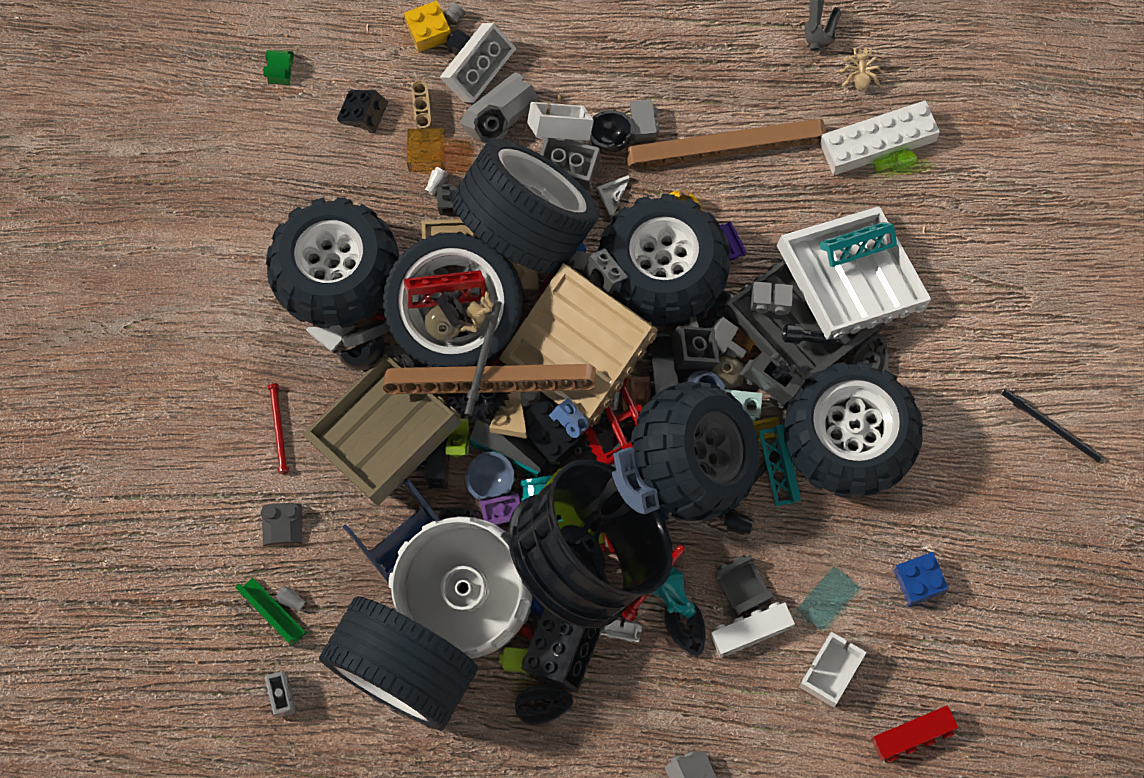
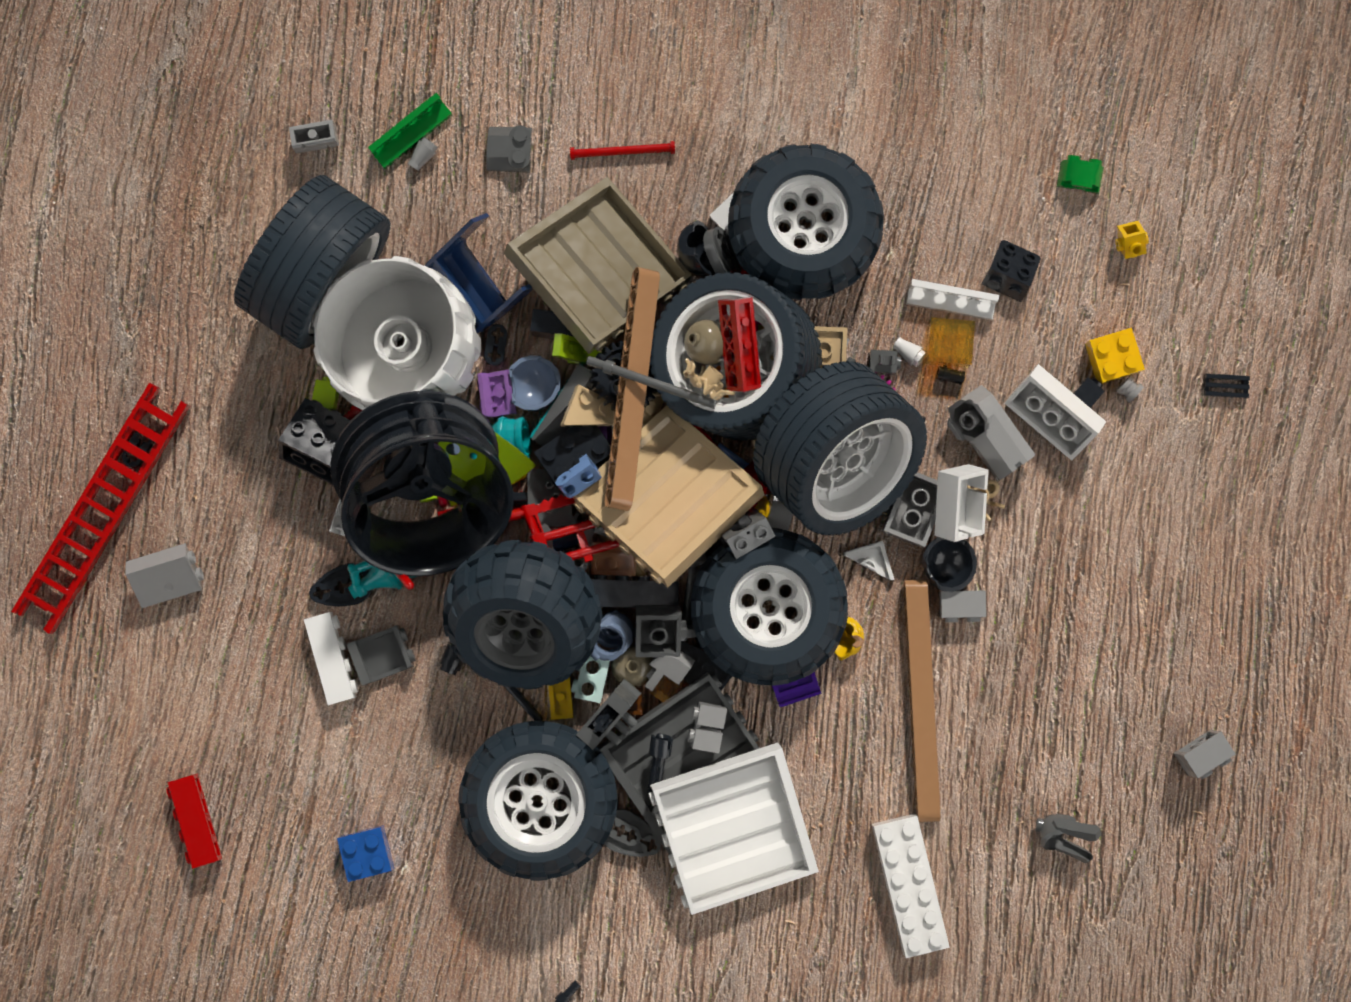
camera: 85 degrees right, 15 degrees up
(331, 21) = (1131, 240): none -> yellow brick
(389, 153) = (951, 299): none -> white fence
(421, 100) = (1015, 336): tan beam -> none
(452, 310) = (710, 351): black beam -> none
(453, 148) = (950, 375): none -> black pin
(537, 694) = (263, 416): black piece -> none
(630, 485) = (478, 536): sand blue arch -> none
(786, 463) = (506, 721): teal fence -> none
(827, 598) = (359, 747): clear light blue piece -> none
(832, 669) = (273, 740): white piece -> none
(856, 237) = (771, 840): teal fence -> none
(862, 72) = (999, 877): tan animal -> none
(896, 160) = (879, 901): clear neon green arm -> none

